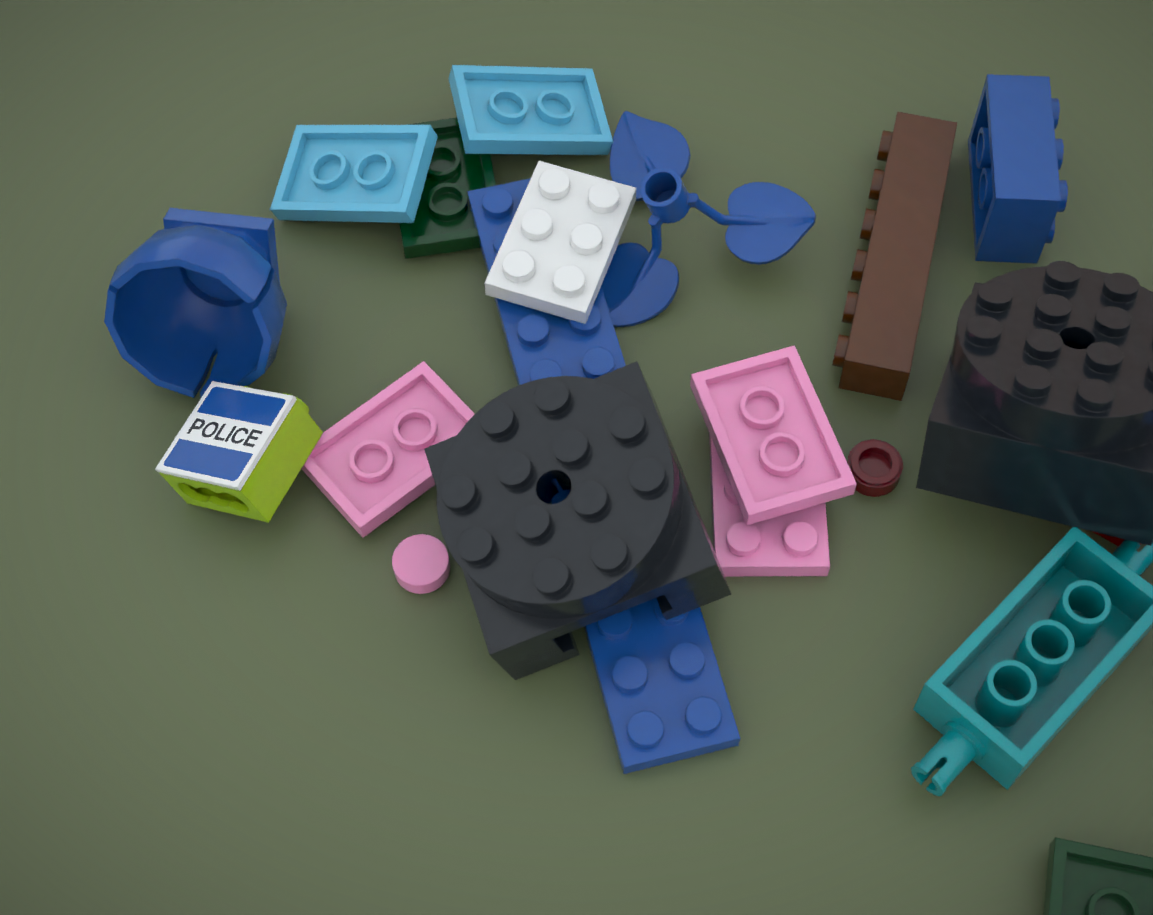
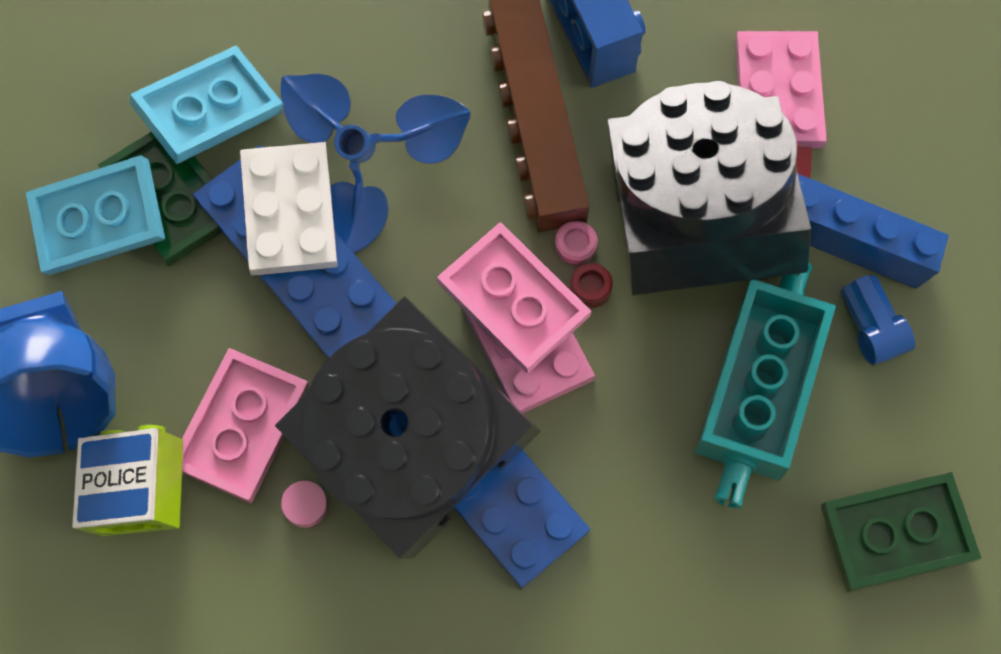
camera: 30 degrees left, 10 degrees up
(878, 414) = (576, 243): none -> bright pink tile

